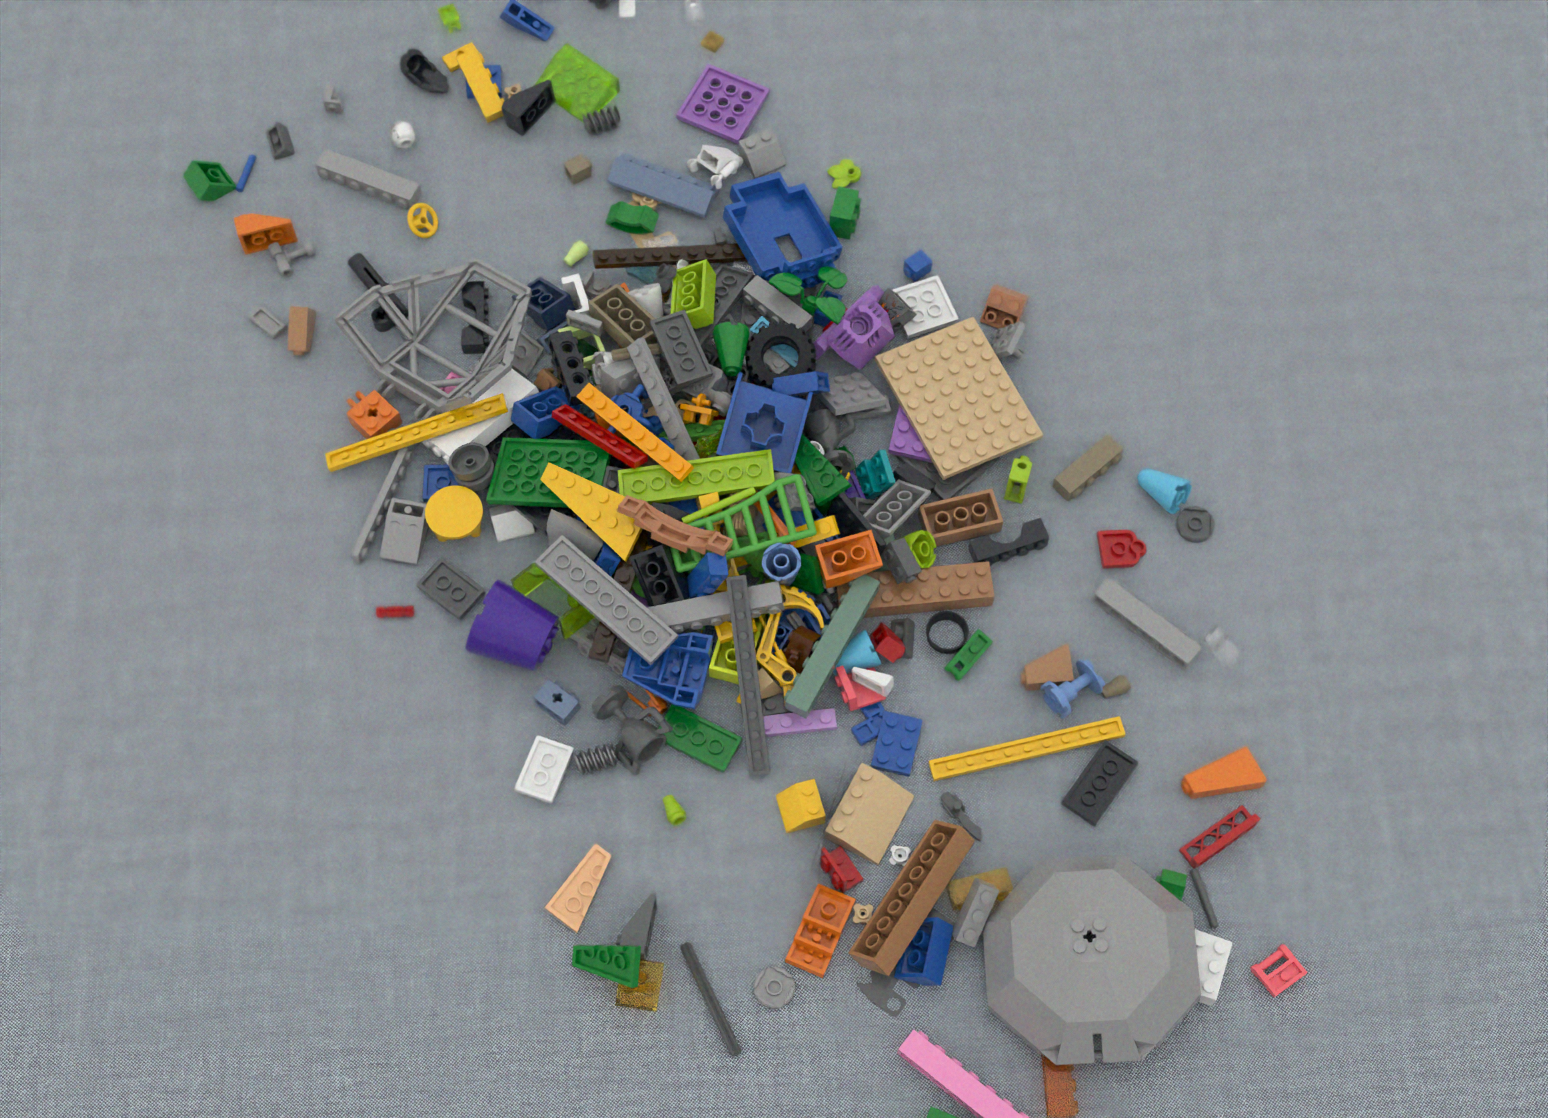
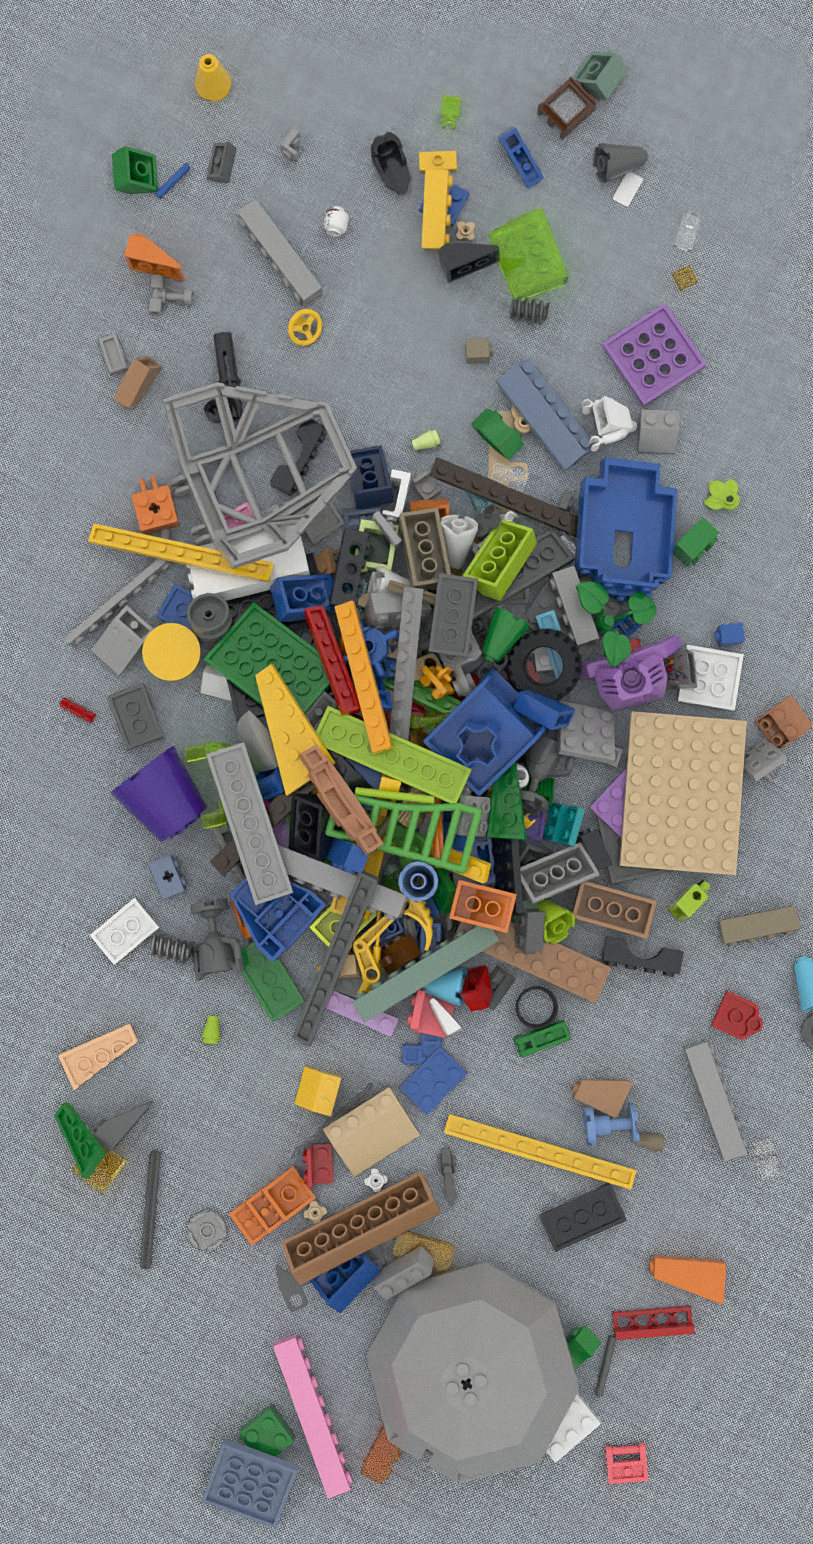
camera: 30 degrees right, 20 degrees up
(237, 83) = (212, 79): none -> yellow cone

